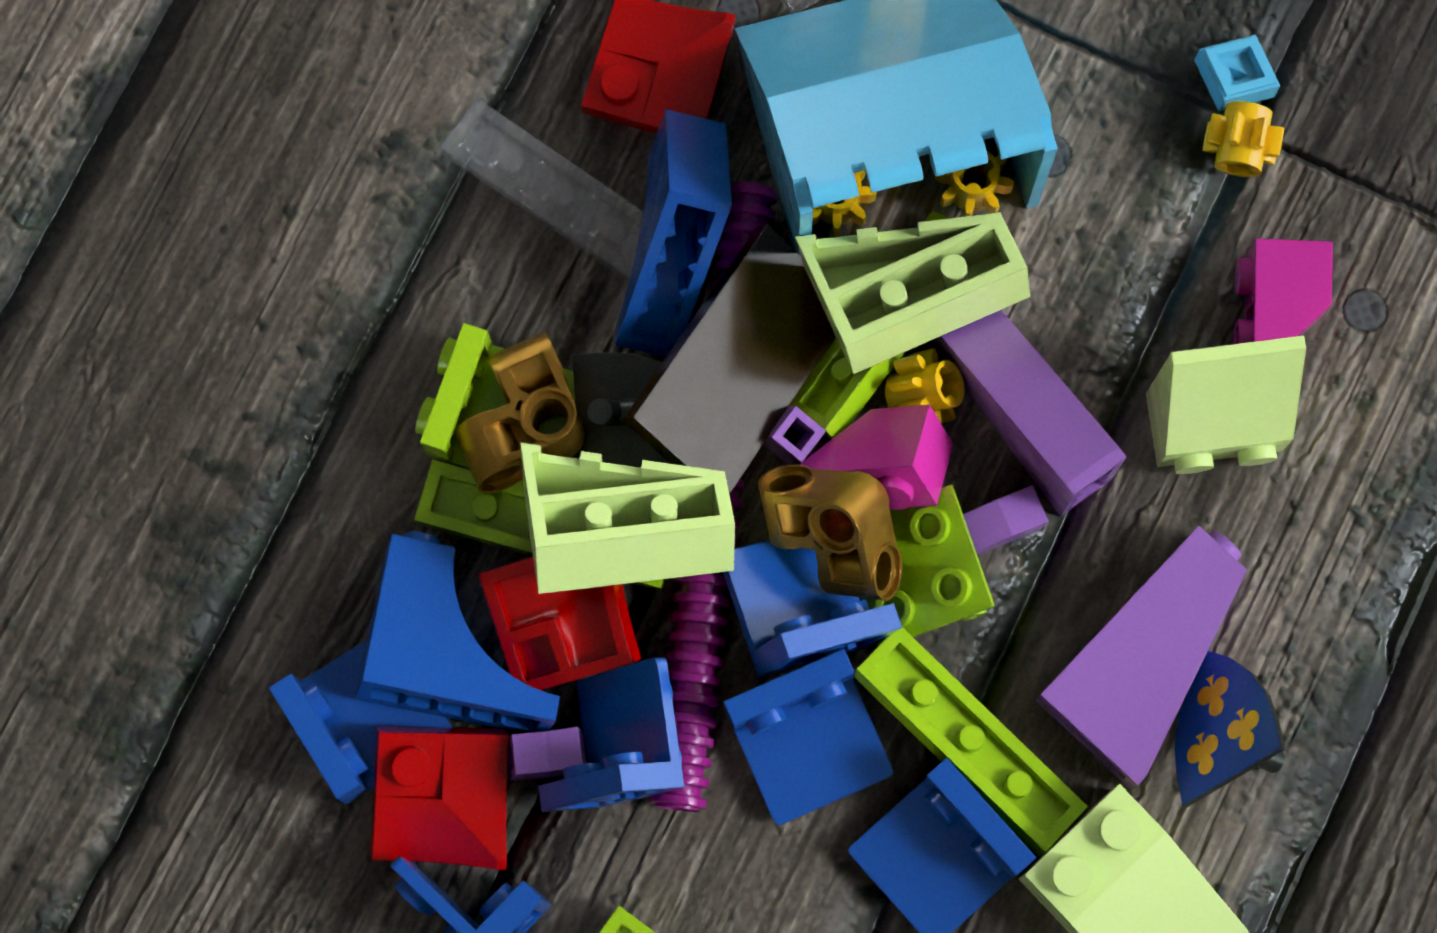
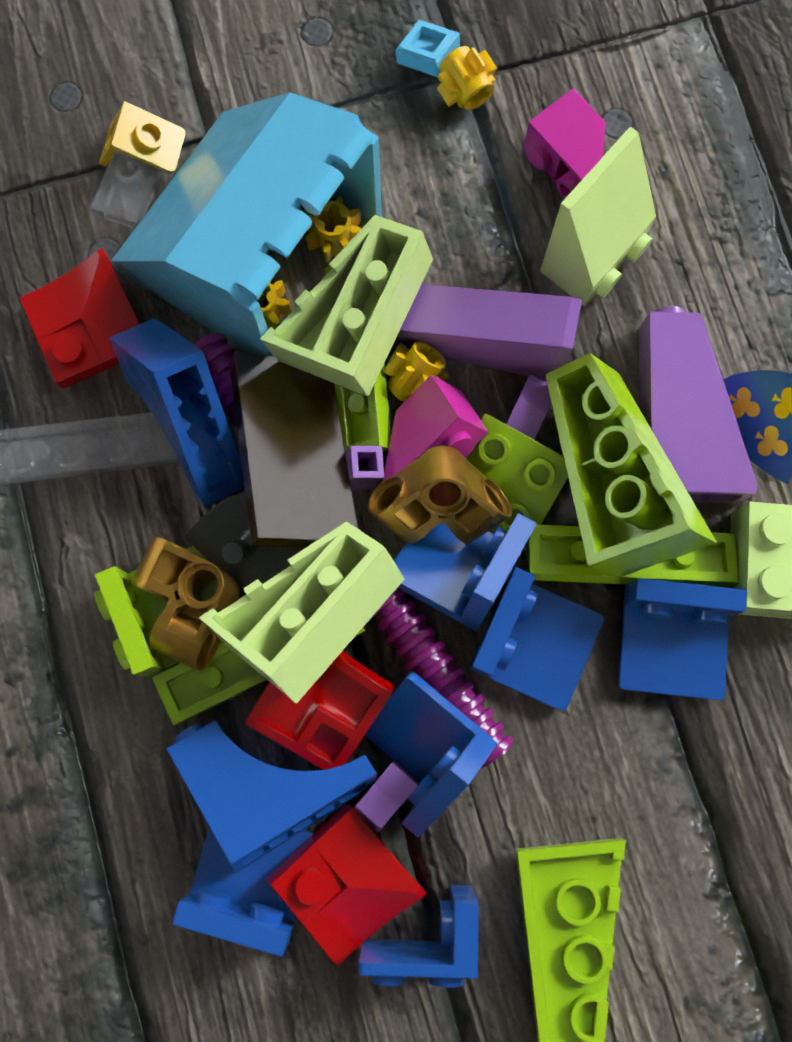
camera: 45 degrees left, 0 degrees up
(1020, 645) = (619, 477): none -> lime wedge

